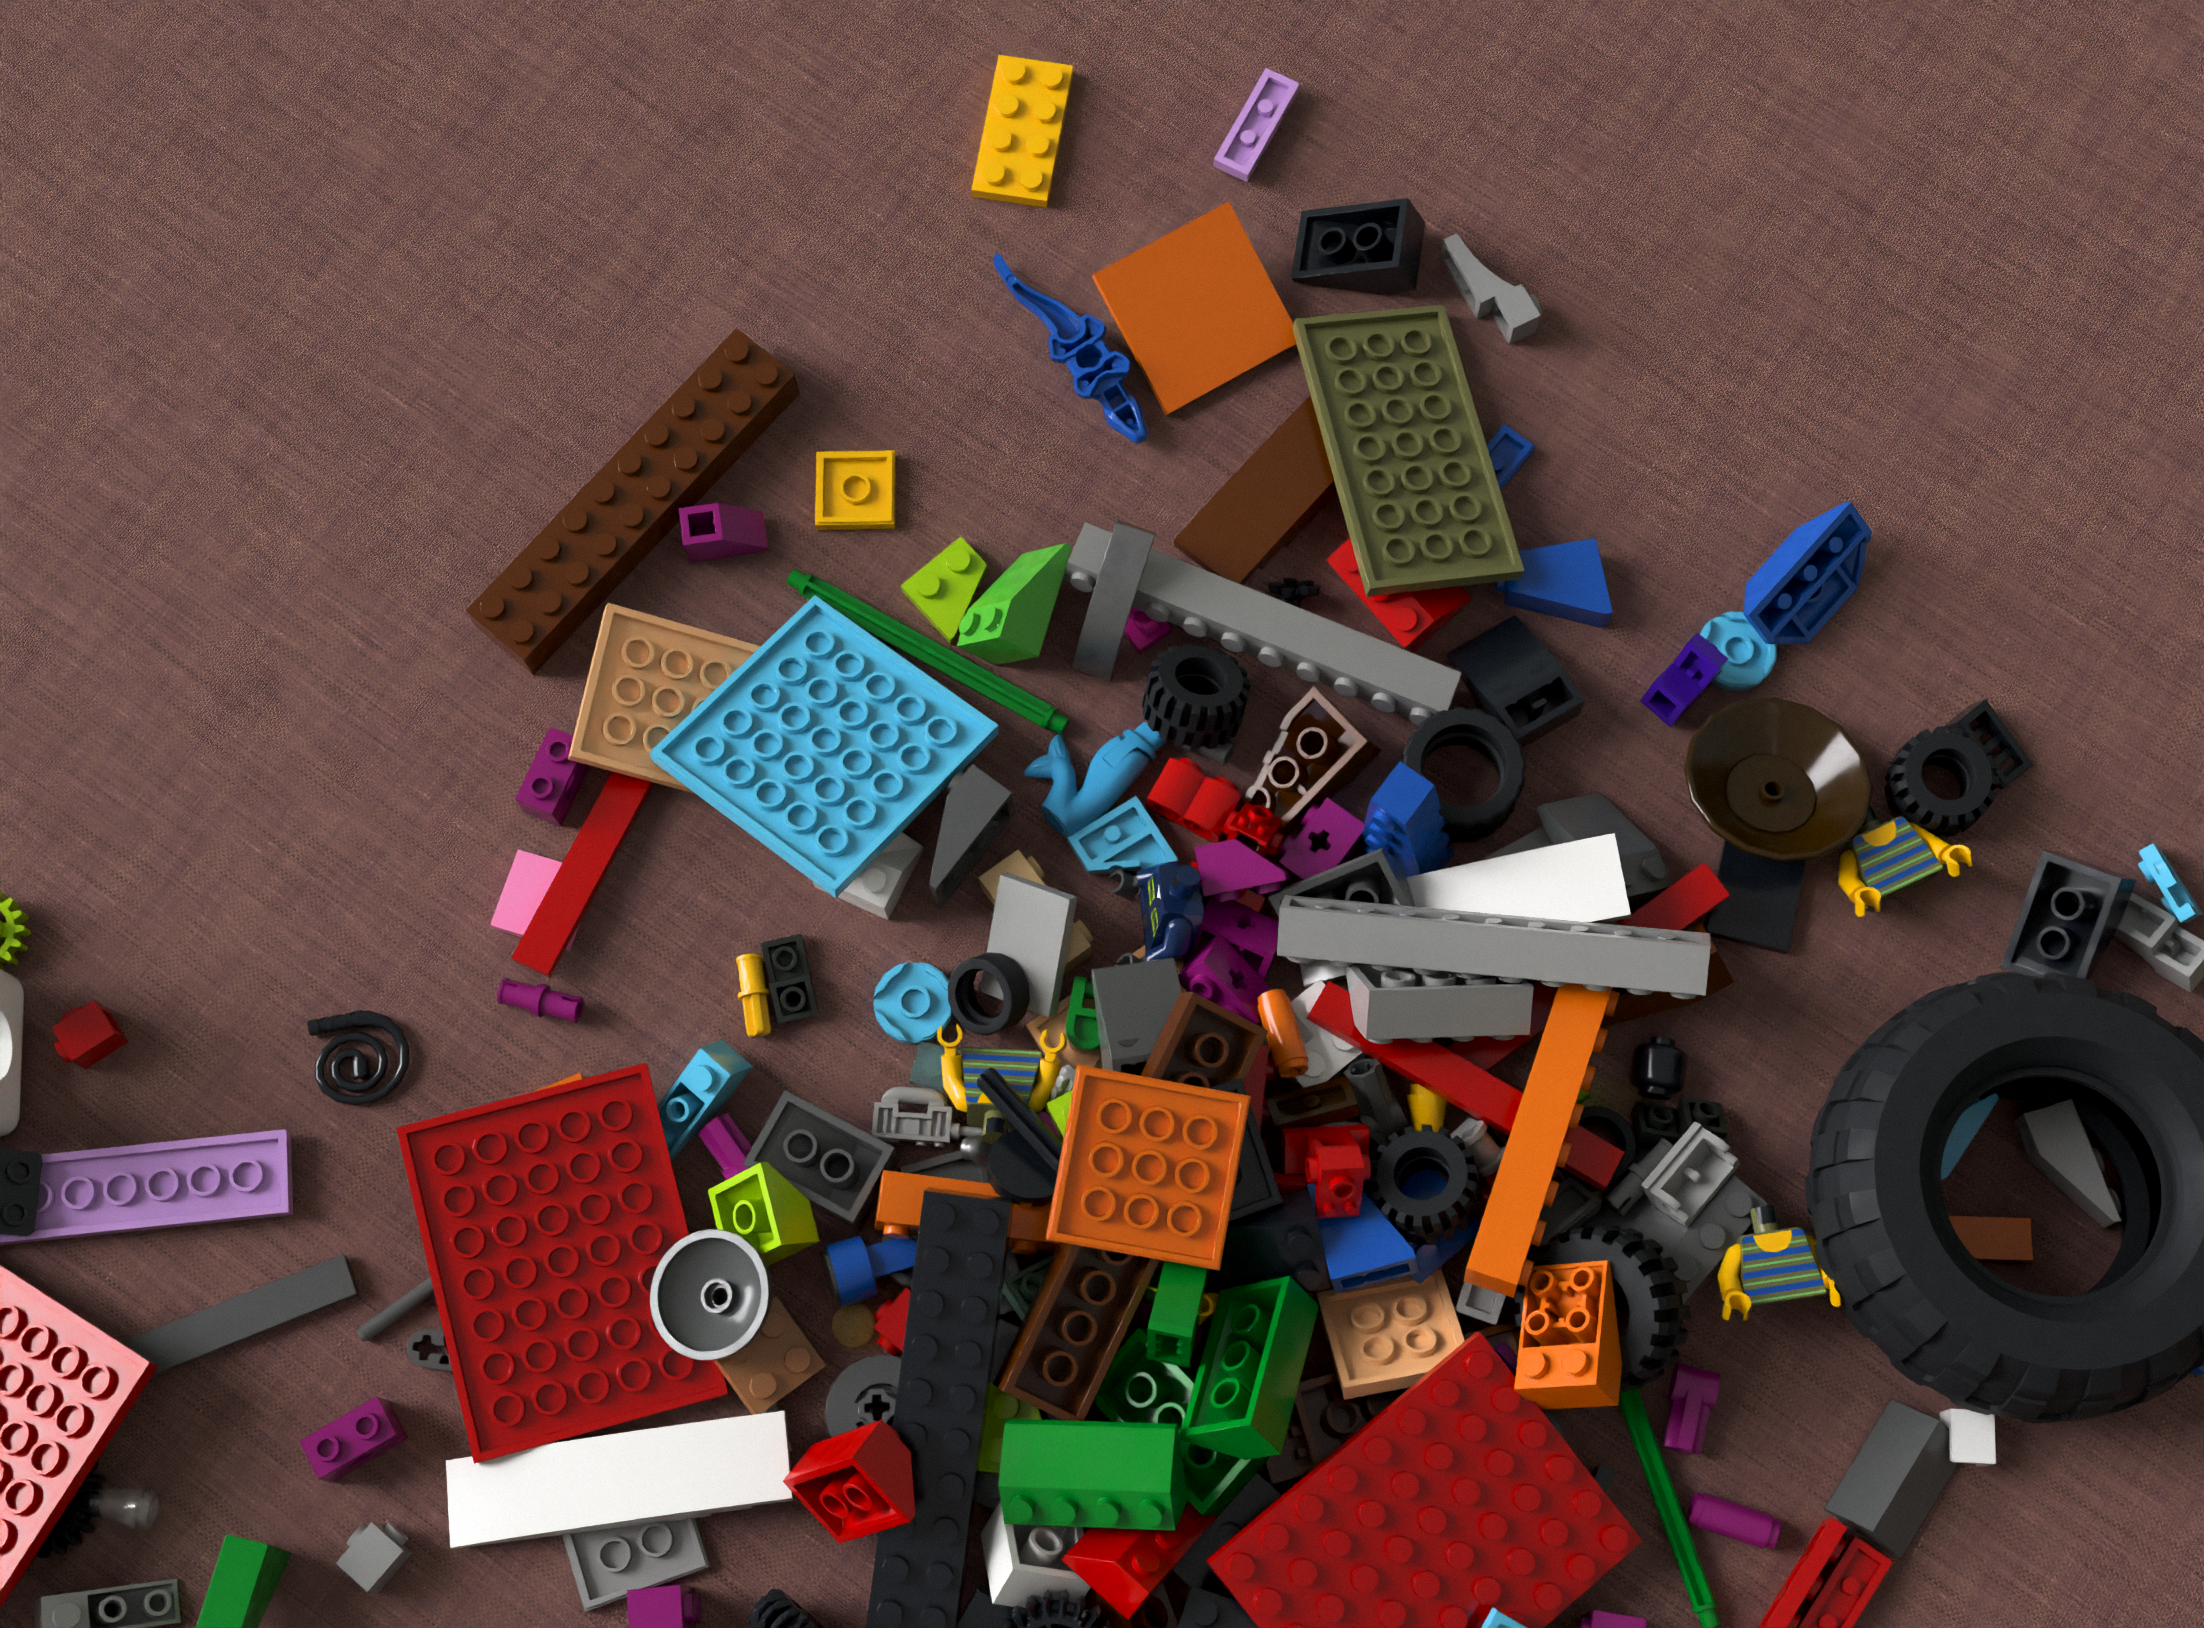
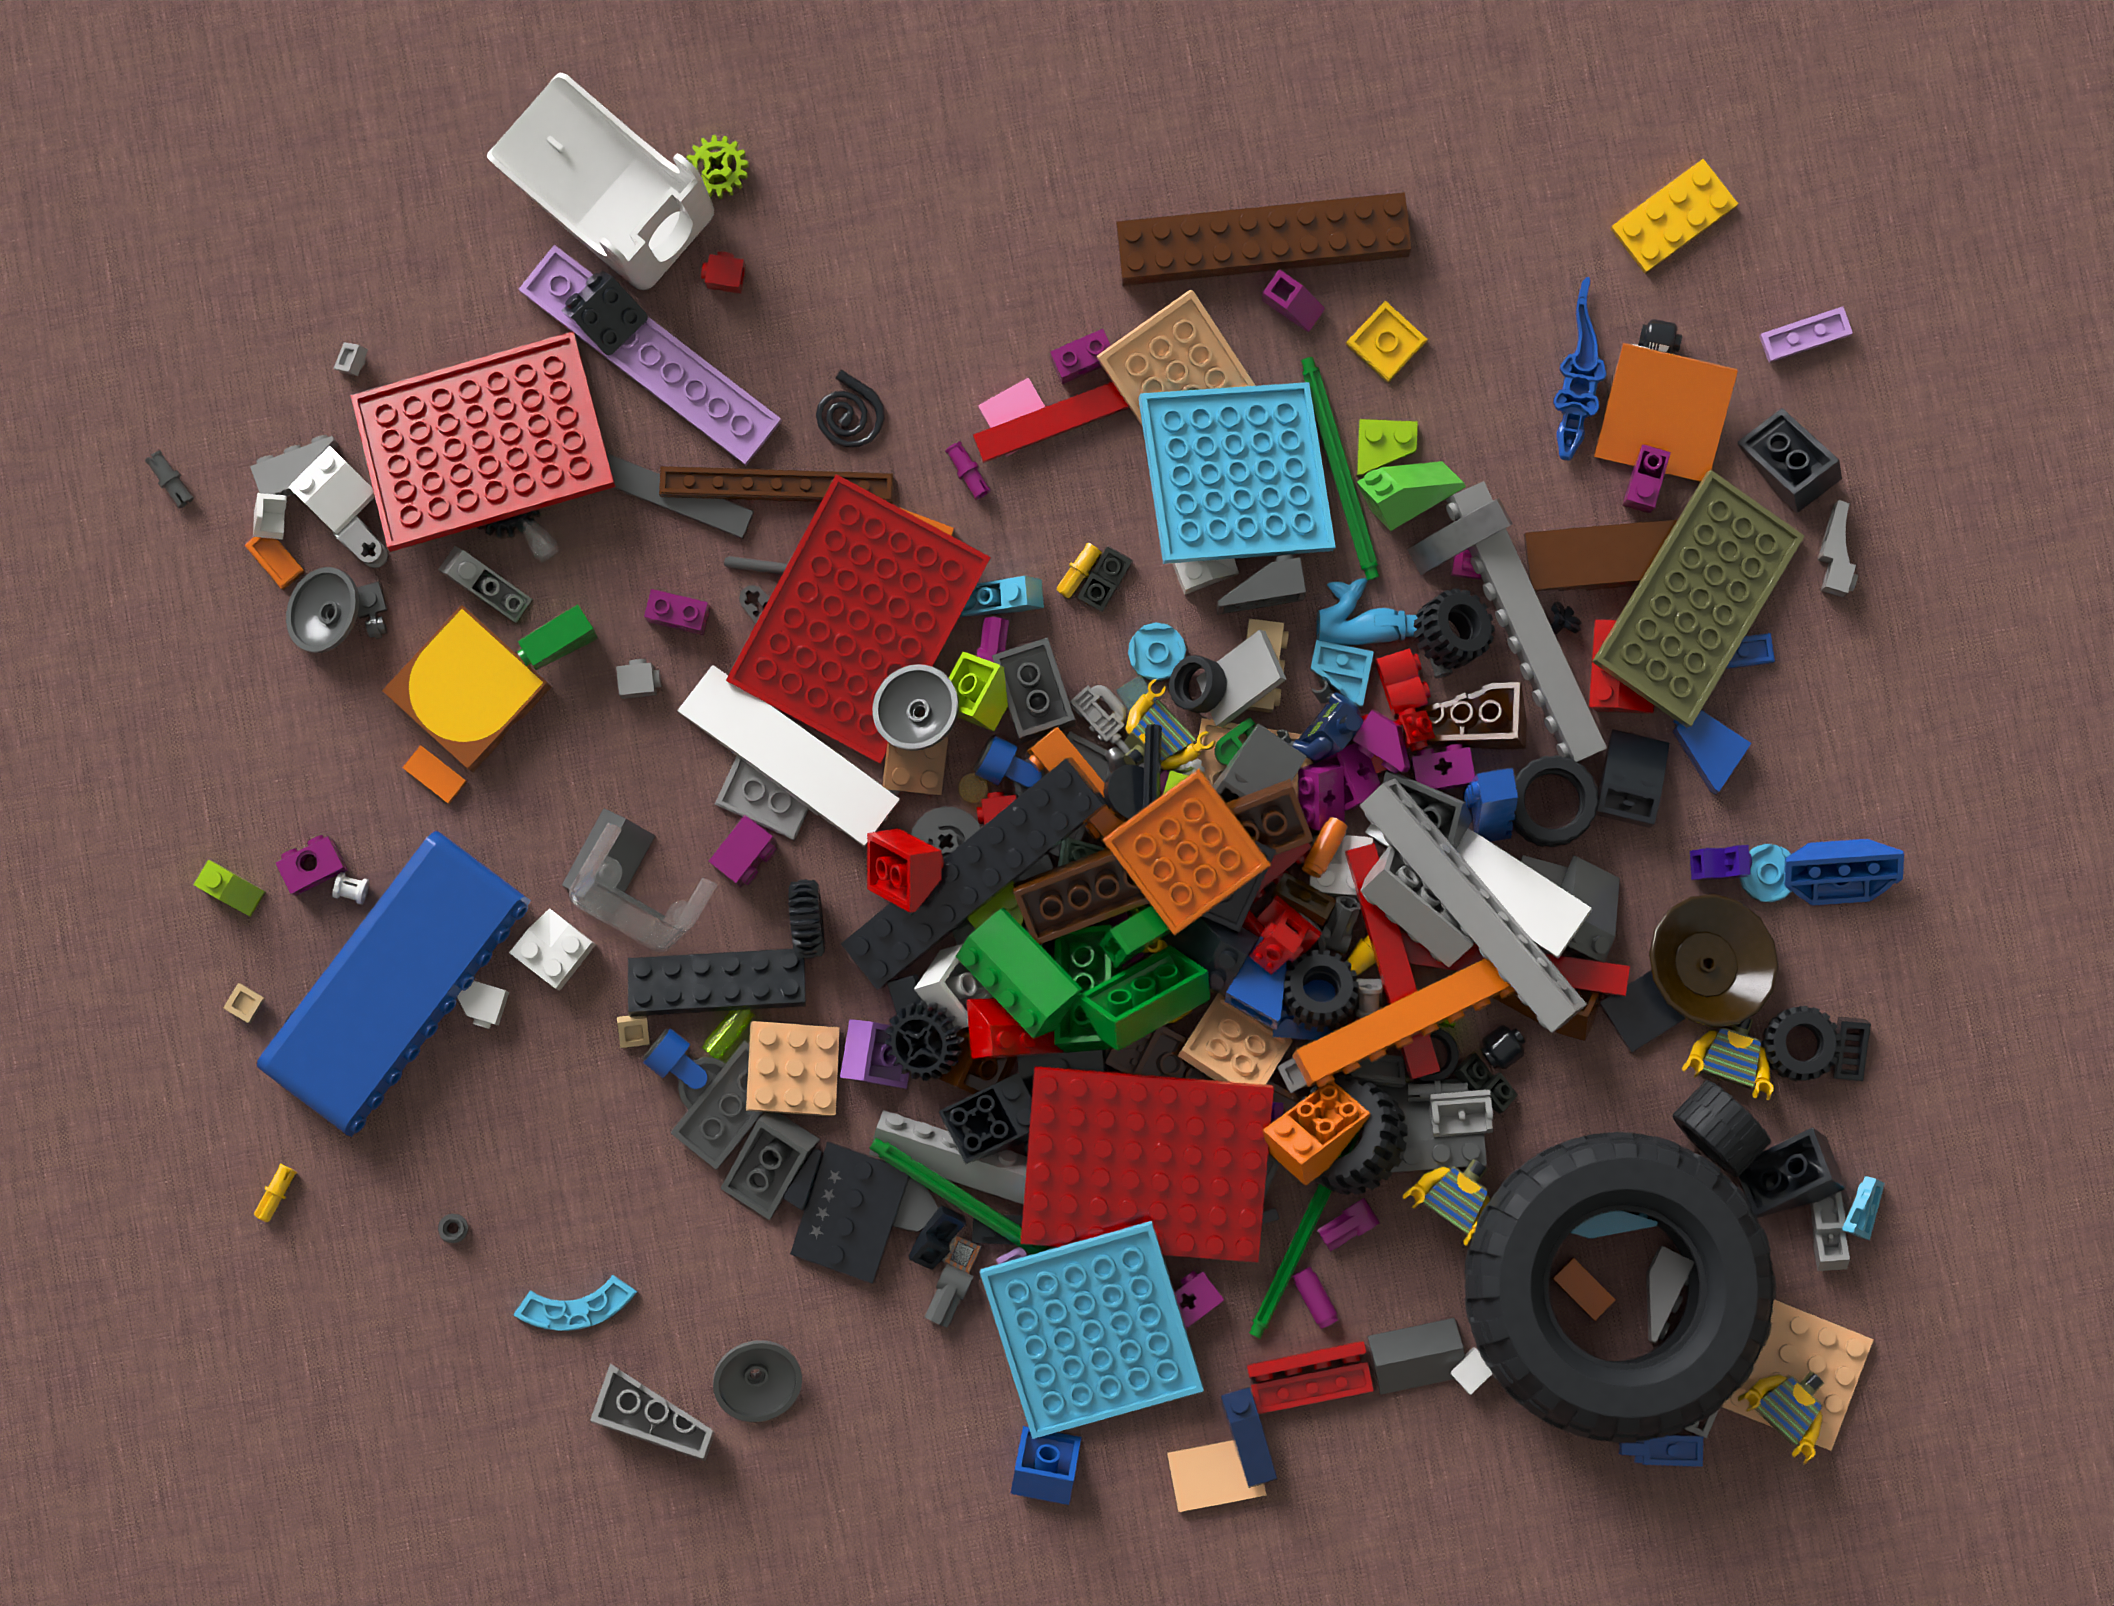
camera: 45 degrees right, 10 degrees up
(321, 1221) = (764, 483): none -> reddish brown tile
(1119, 242) = (1660, 336): none -> black head
(1241, 387) = (1646, 479): none -> magenta slope
(1958, 934) = (1721, 1128): none -> black tyre

